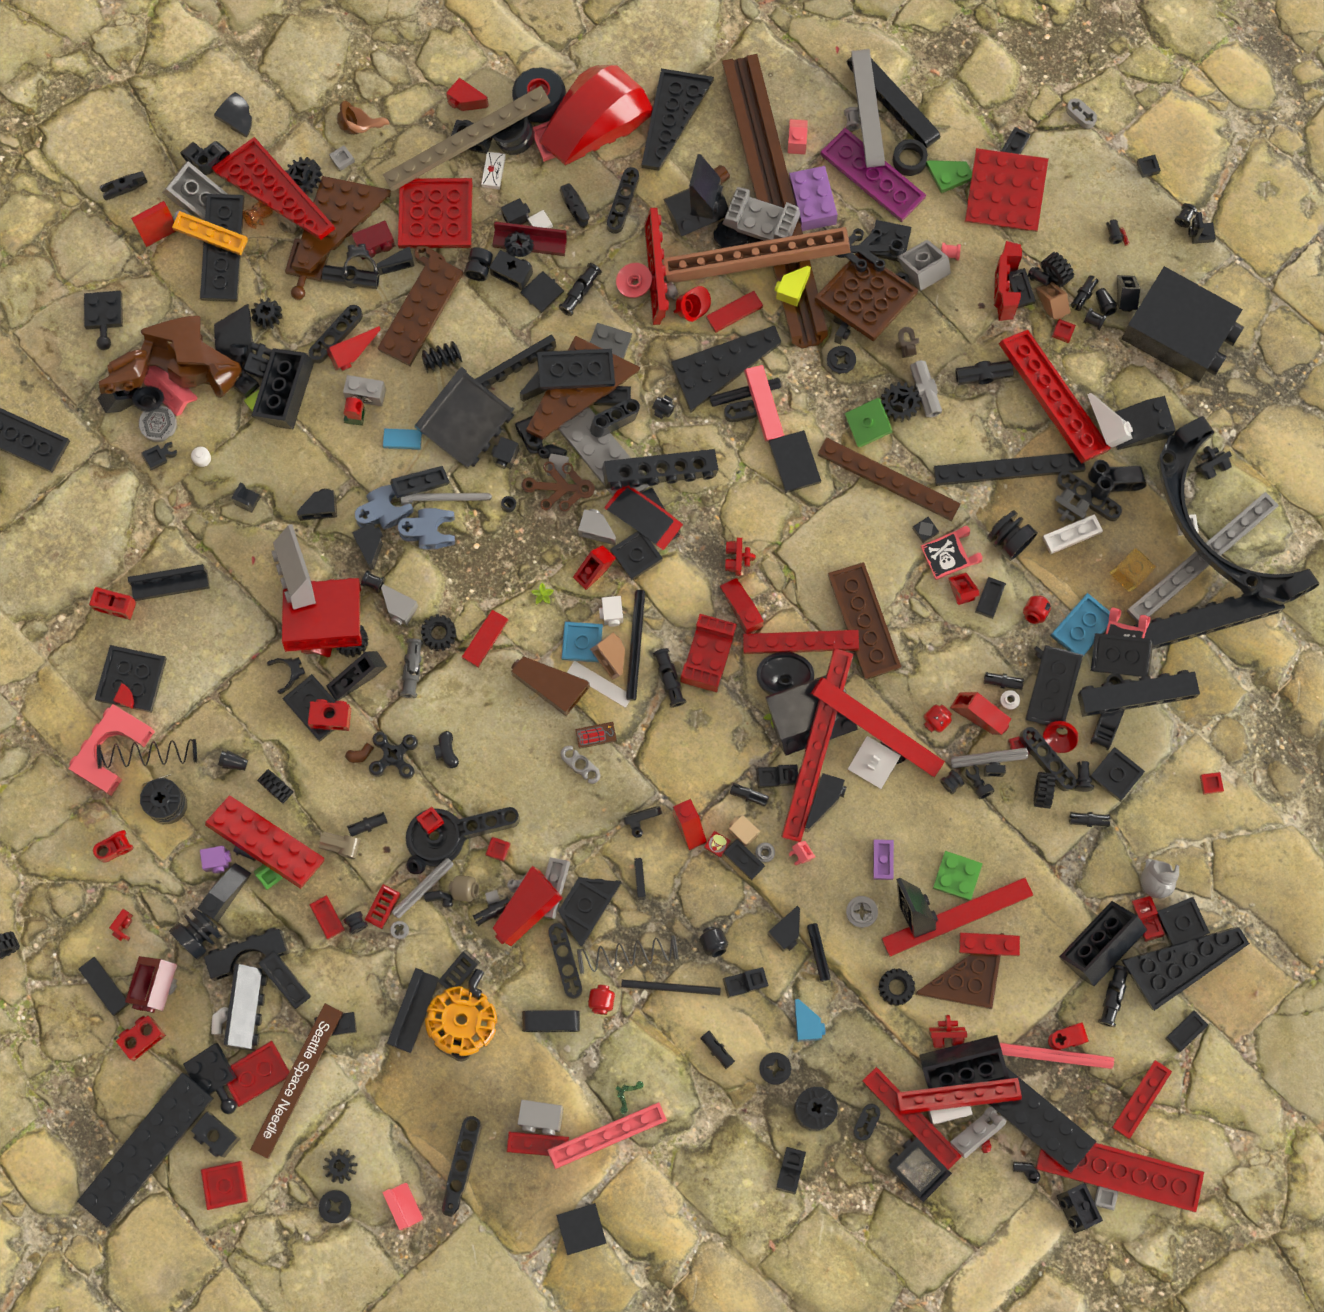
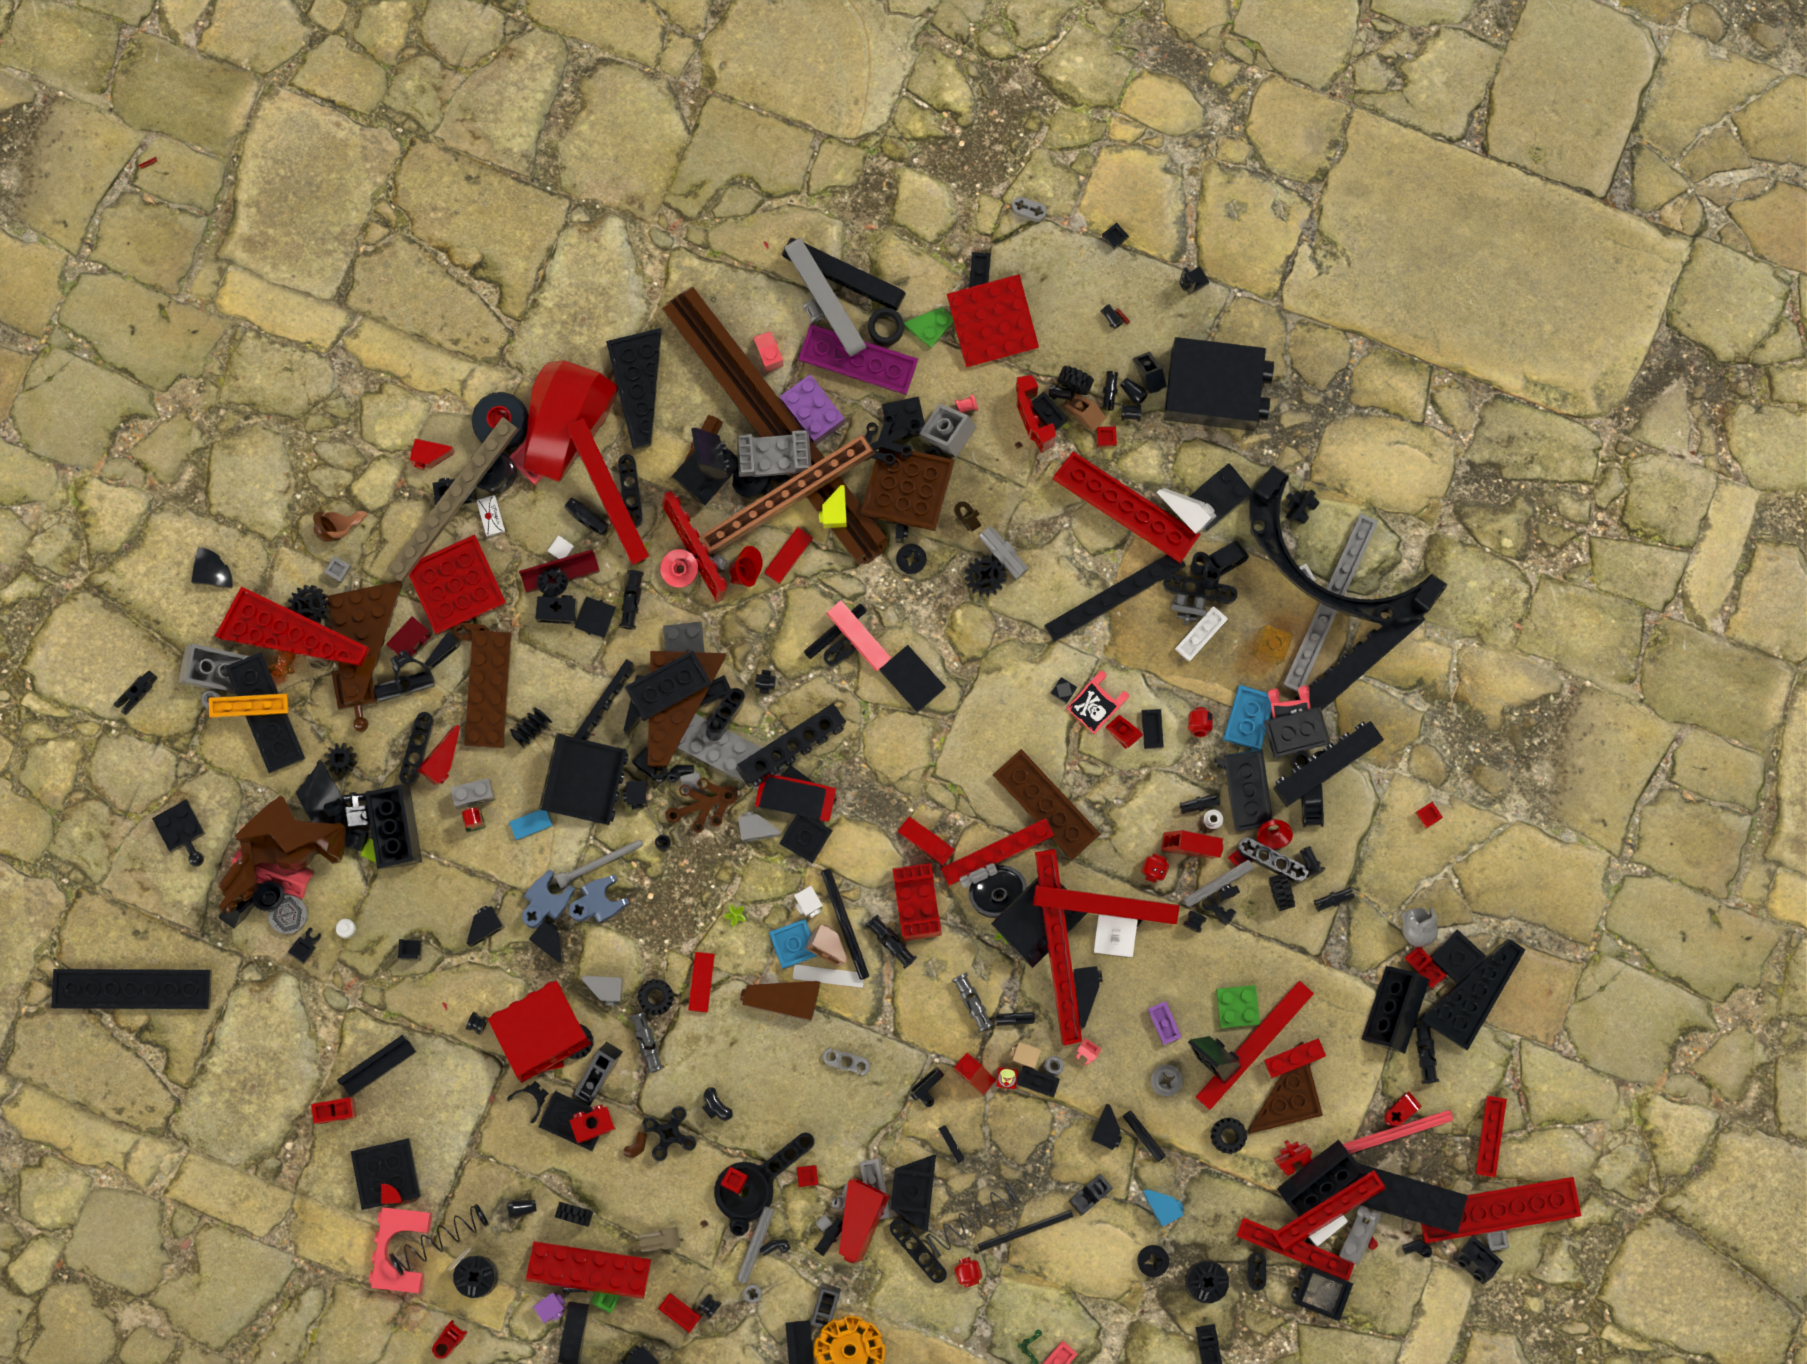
camera: 25 degrees left, 5 degrees up
(154, 223) = (190, 721): red tile -> none
(210, 155) = (209, 622): black piece -> none
(272, 585) = (477, 1023): none -> black wheel
(293, 569) = (492, 1001): light grey slope -> none
(367, 824) = (675, 1209): black pin -> none
(372, 581) = (570, 976): black bush -> none
(392, 903) = (728, 1262): red slope -> none
(419, 482) = (569, 860): black plate -> none
(464, 888) = (794, 1227): dark tan head -> none
(473, 984) = (844, 1310): black arm -> none
(478, 264) = (522, 618): black wheel -> none
(515, 212) = (533, 551): black brick -> none
(551, 1021) = (931, 1313): black beam -> none
(594, 566) = (772, 867): red slope -> none
(596, 735) = (848, 1027): tile -> none
(602, 186) = (607, 491): none -> red tile
(713, 941) = (1045, 1171): black head -> none
(716, 367) = (795, 620): black wing -> none
(717, 1049) = (1093, 1268): black pin -> none
(718, 764) = (974, 1004): none -> dark grey piece
(735, 565) = (897, 789): red hips -> none
(774, 653) = (978, 875): none -> light grey axle
(777, 776) = (1032, 989): black slope -> none
(868, 422) = (965, 610): bright green plate -> none
(889, 479) = (1008, 656): reddish brown plate -> none
(984, 372) = (1050, 512): black piece -> none
(1013, 536) = (1147, 662): black wheel -> none
(1117, 774) = (1340, 845): black plate -> none
(1186, 219) = (1171, 277): black bush -> none
(1186, 1031) = (1503, 1055): black tile -> none

